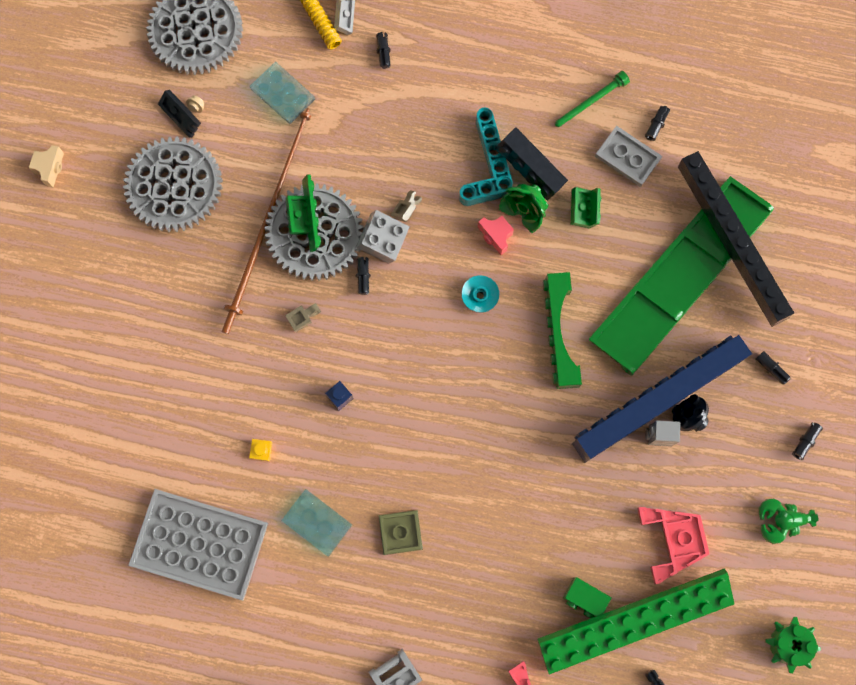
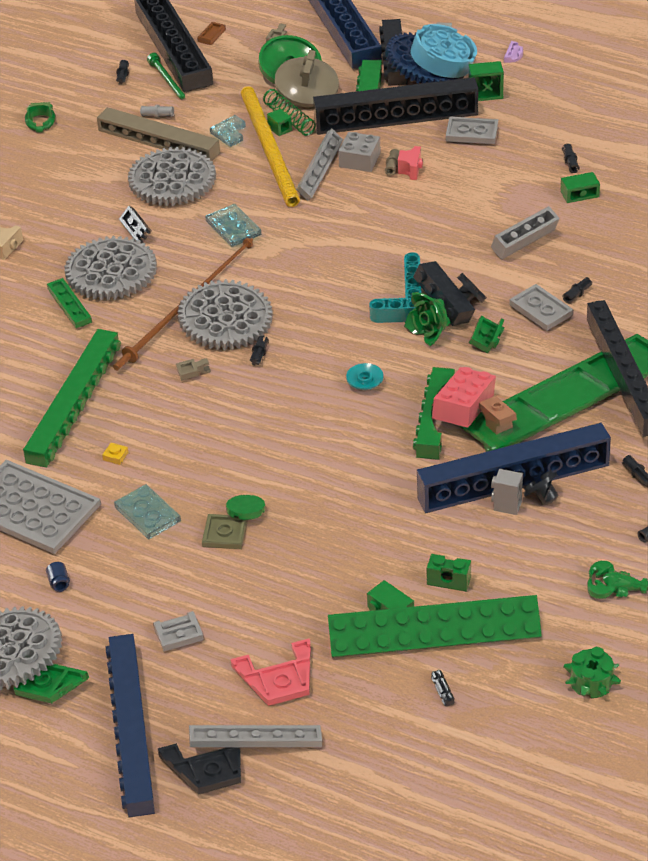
camera: 20 degrees right, 35 degrees down
(145, 244) = (69, 303): none -> green plate
(193, 384) = (71, 398): none -> green brick
(195, 104) = (153, 221): tan plate -> none
(257, 634) = (58, 576): none -> dark blue brick
(302, 214) = (217, 290): green bracket -> none
(339, 395) = (203, 423): dark blue brick -> none
(382, 236) = (286, 322): light grey brick -> none
(383, 50) = (335, 210): black axle -> none
(405, 208) = (314, 313): dark tan plate -> none
(413, 500) = (245, 506): none -> green tile
(496, 232) = (395, 338): coral brick -> none
(554, 151) = (469, 290): none -> black plate
(589, 53) = (525, 232): none -> light grey brick
(590, 312) = (461, 396): none -> coral brick
(620, 79) = (550, 257): green piece -> none
(623, 544) = (458, 569): none -> green brick
(629, 330) = (497, 414): none -> nougat brick
(683, 538) = (504, 576): coral wing -> none

